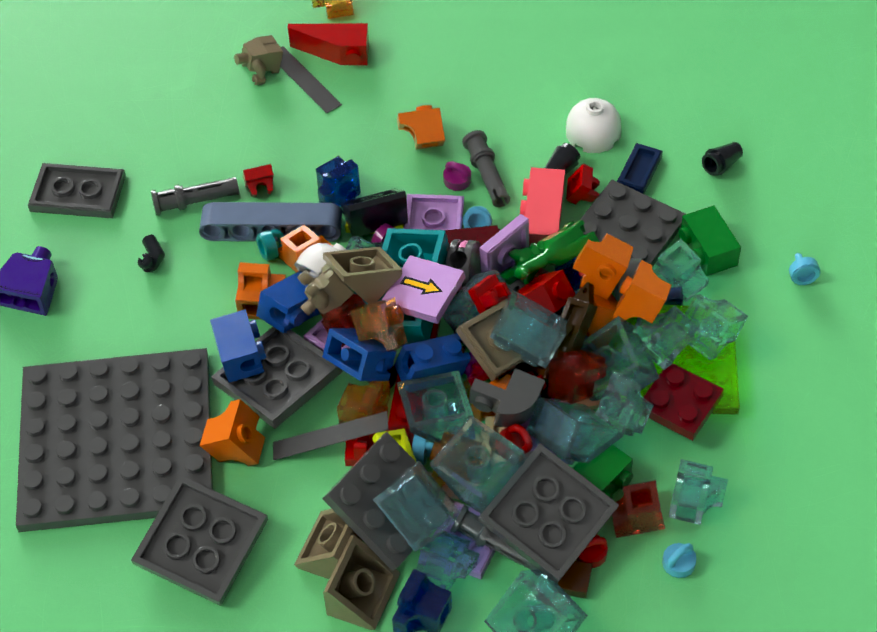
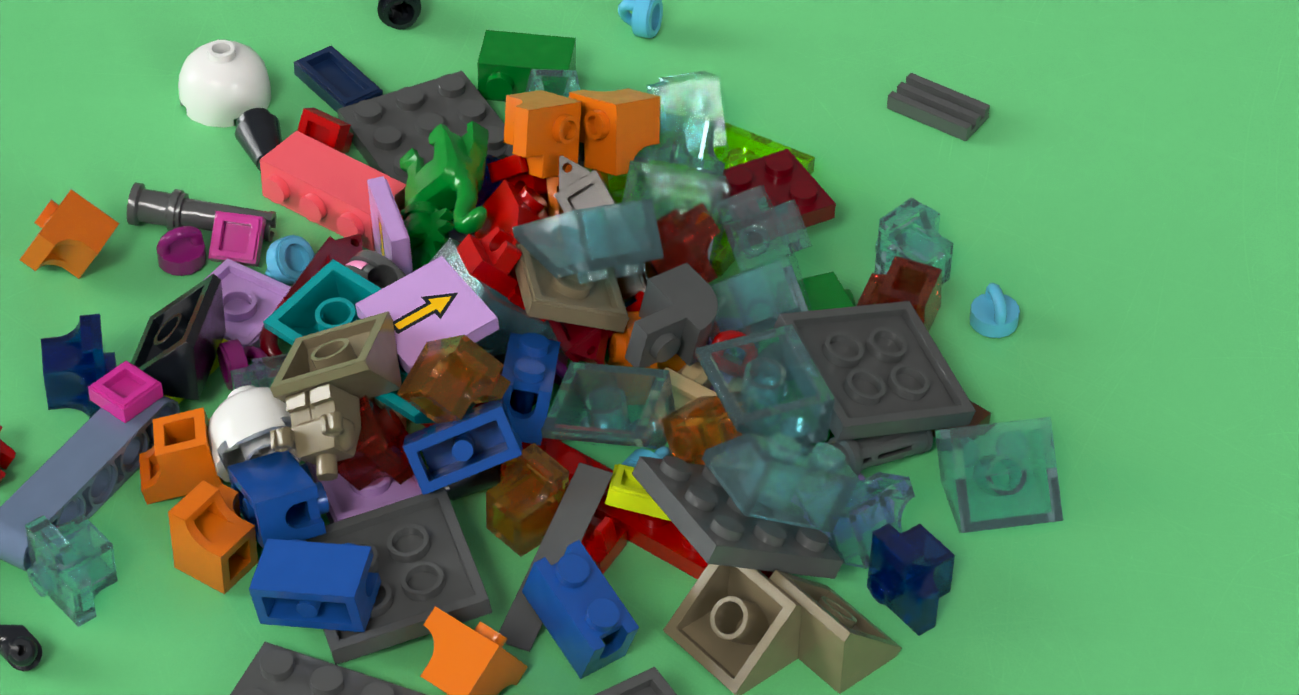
camera: 65 degrees left, 10 degrees down
(206, 248) = (70, 564): none -> clear light blue brick
(267, 244) = (126, 494): teal tile -> none
(291, 463) = (580, 610): none -> blue brick
(321, 205) = (125, 391): none -> dark pink tile
(478, 190) = (237, 238): none -> dark pink tile
(849, 429) = (938, 107): none -> dark grey tile

